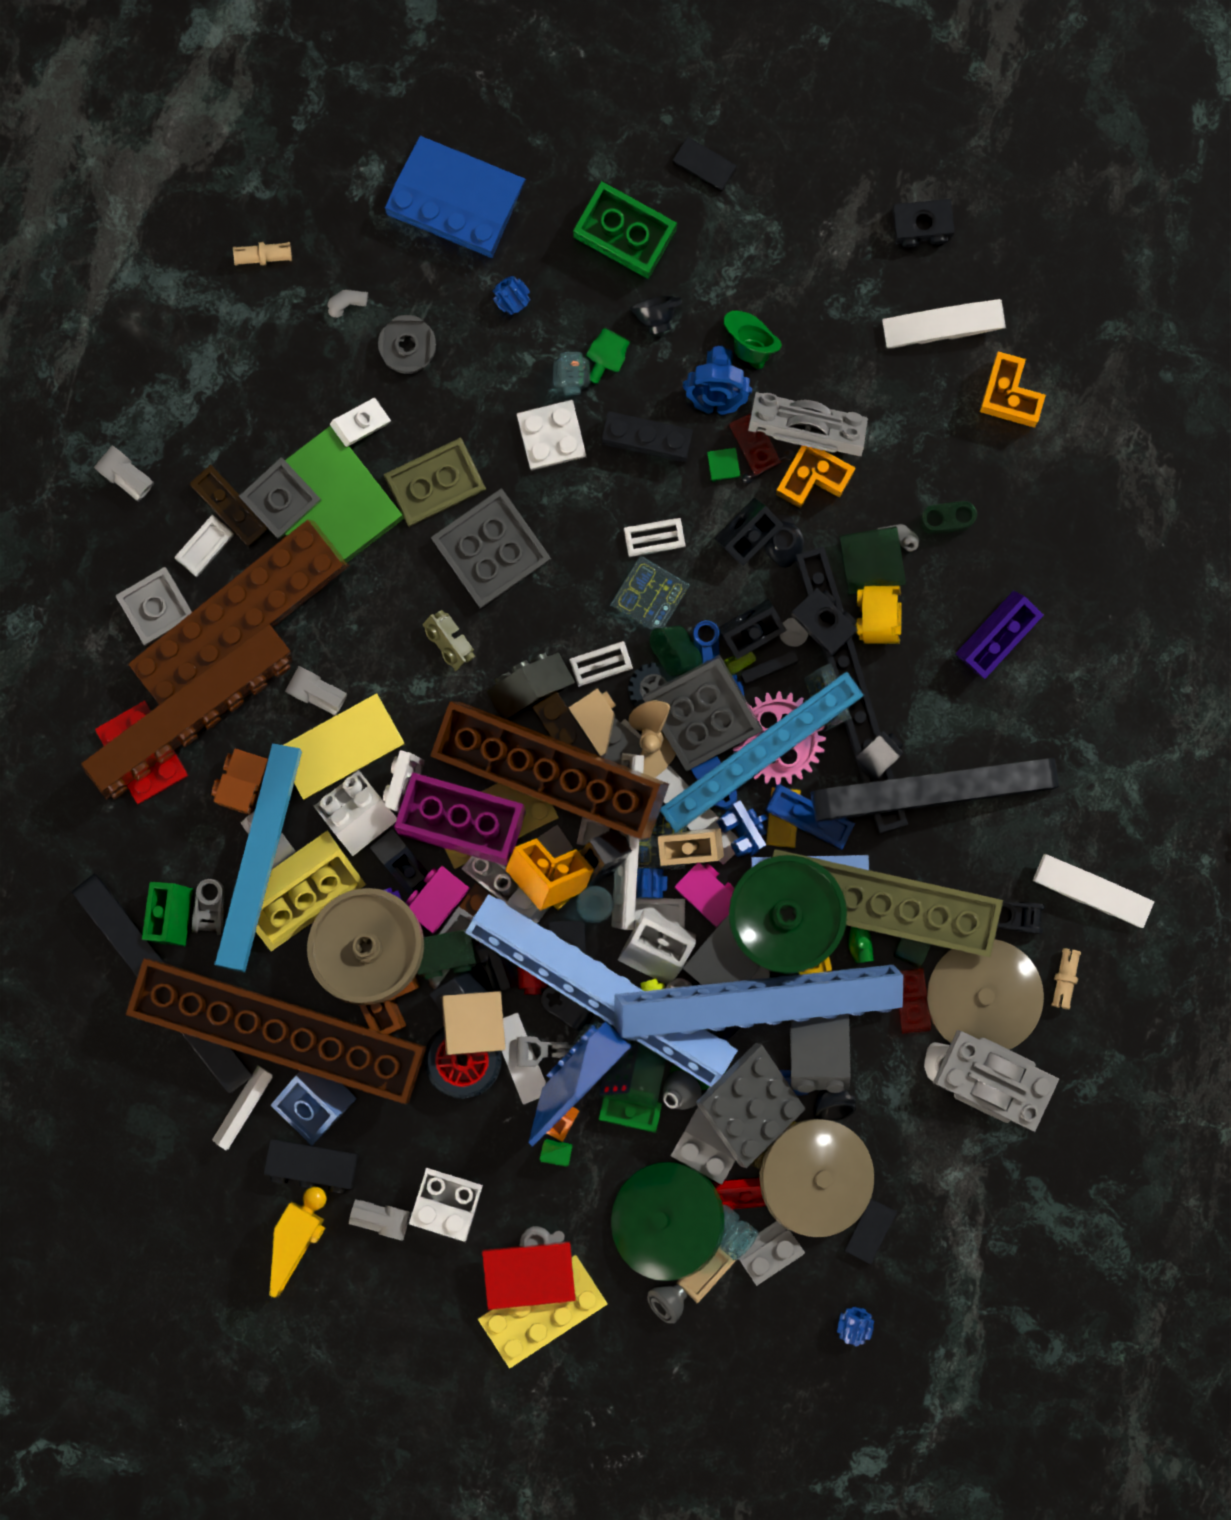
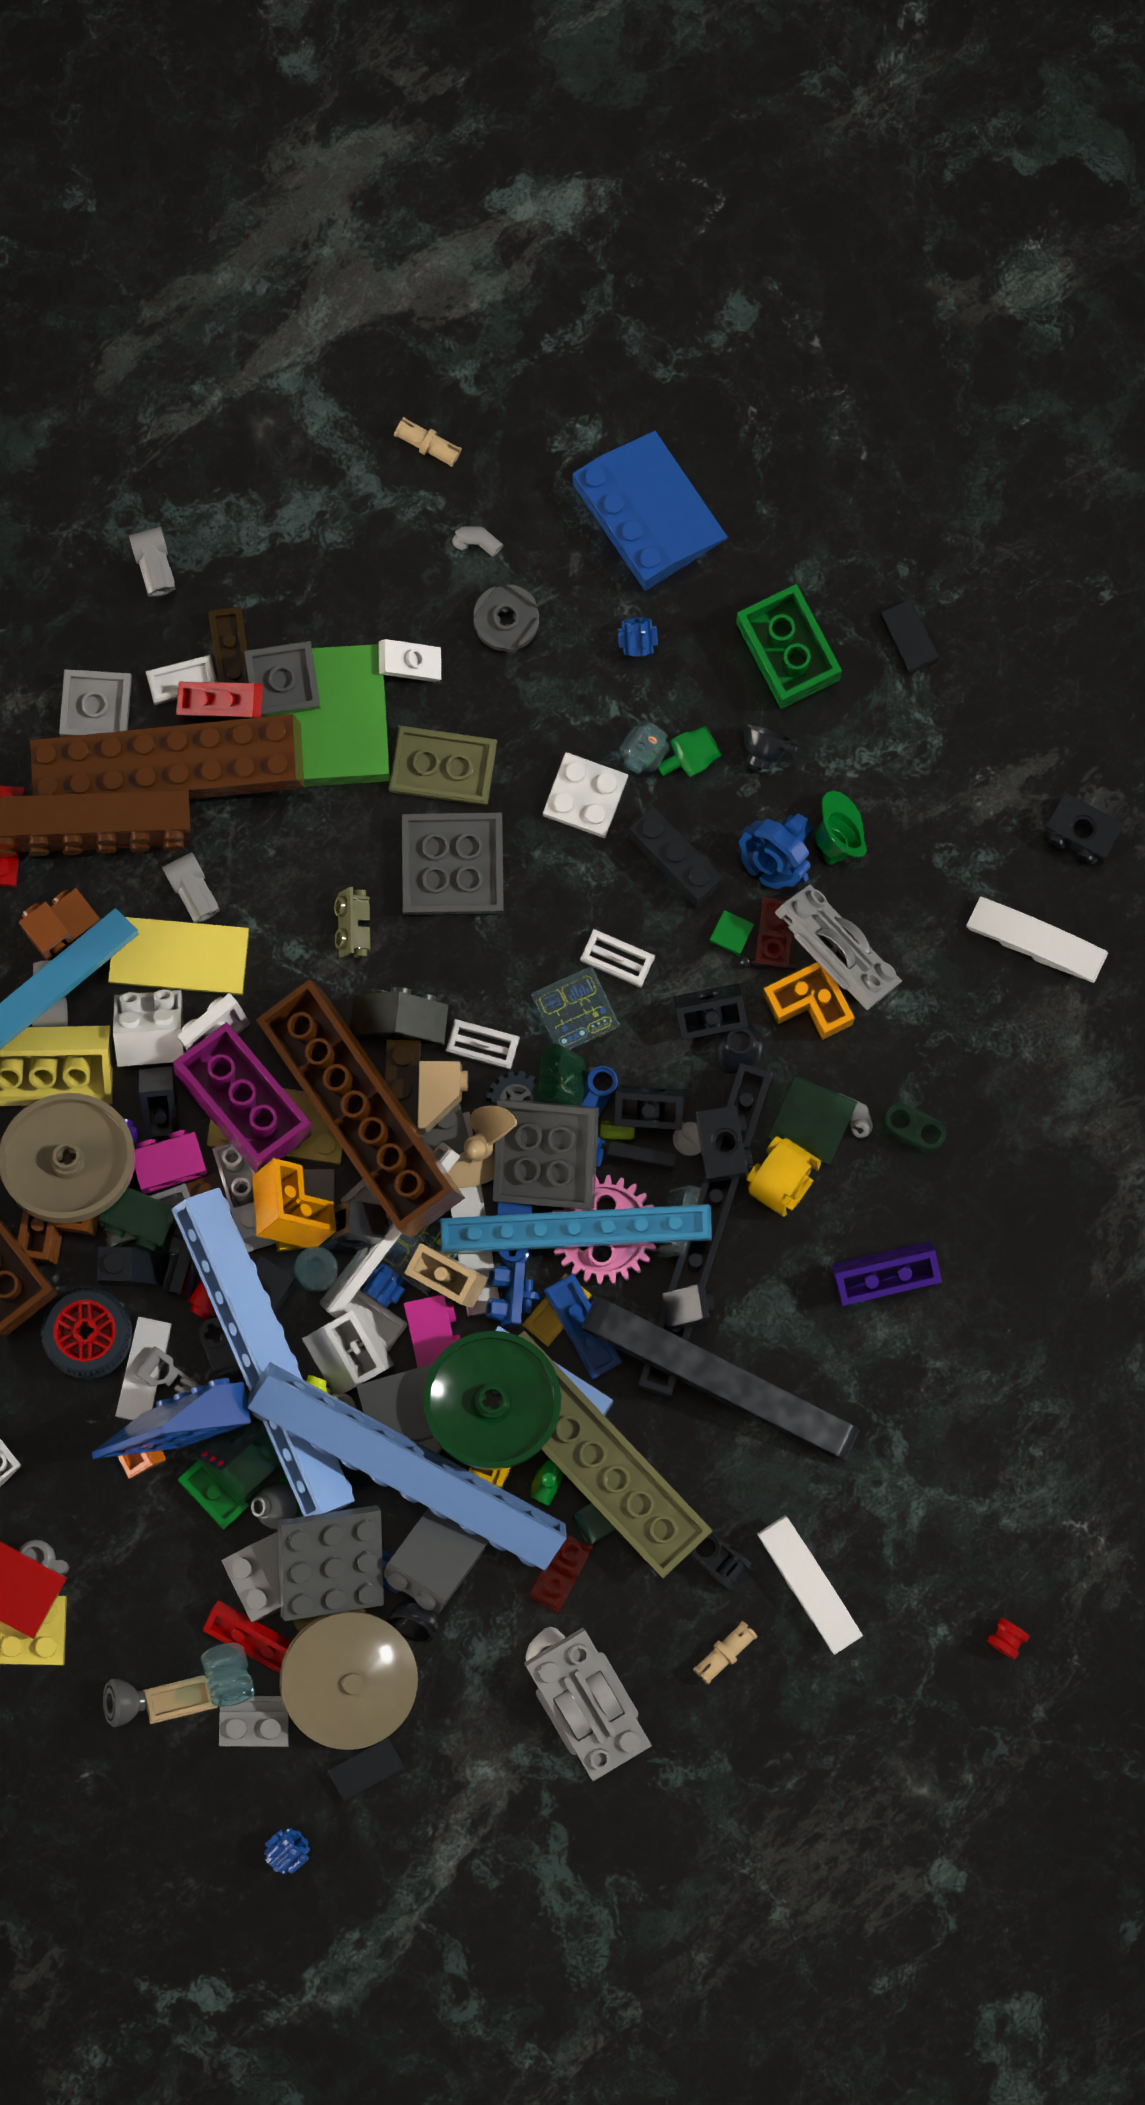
camera: 30 degrees right, 5 degrees down
(245, 543) = (219, 699): none -> red plate
(473, 1023) = (119, 1302): tan tile -> none
(556, 1152) = (114, 1484): green slope -> none
(667, 1221) = (175, 1623): dark green dish -> none
(986, 995) = (636, 1616): dark tan dish -> none
(1005, 398) = (1048, 1052): light orange brick -> none

